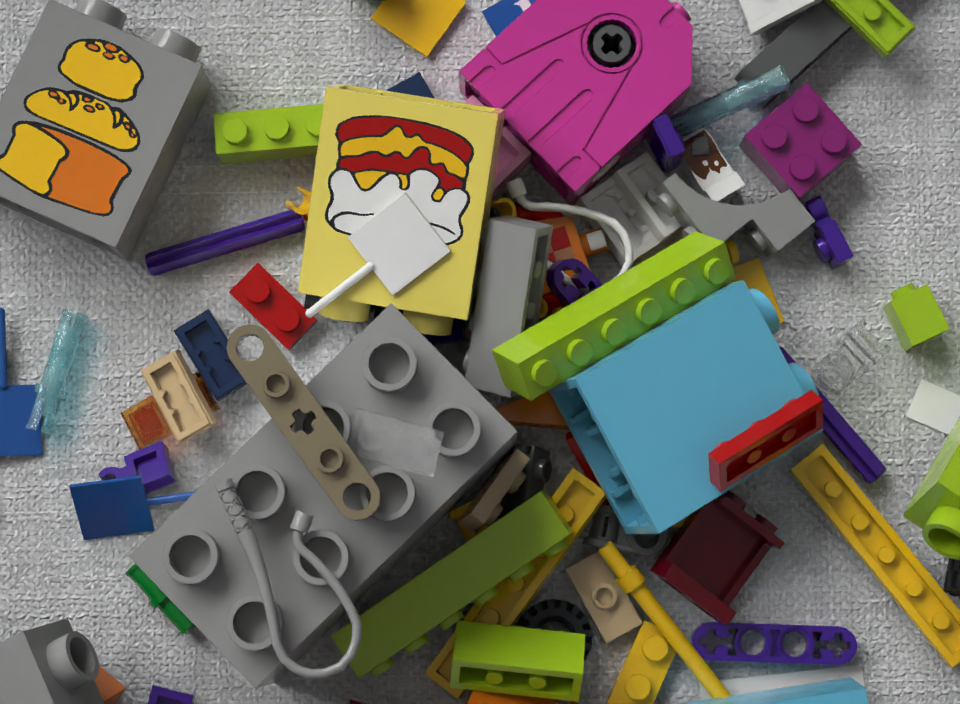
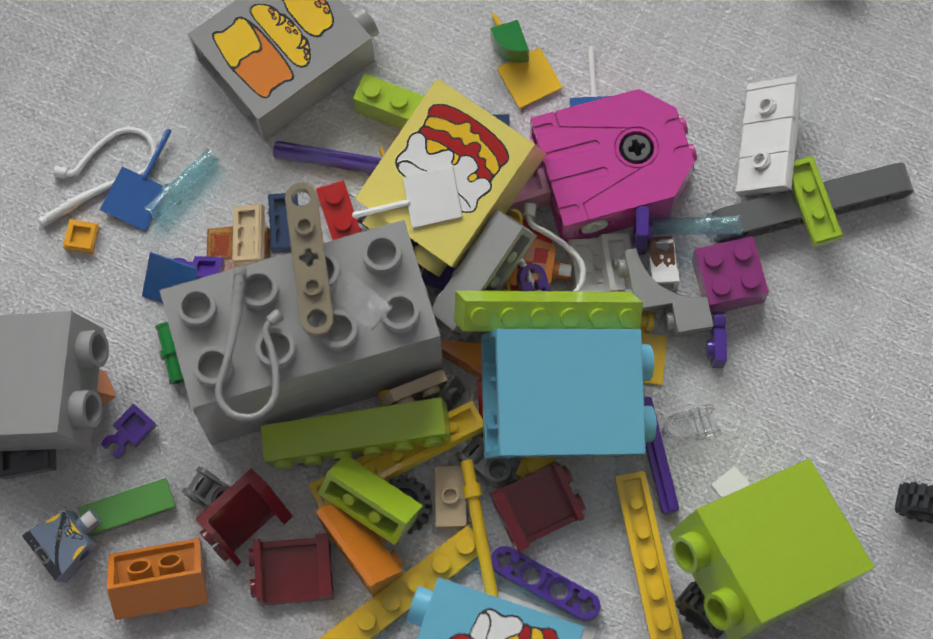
camera: 30 degrees right, 10 degrees down
(765, 440) = (601, 434): red plate -> none
(915, 315) = (749, 421): lime brick -> none

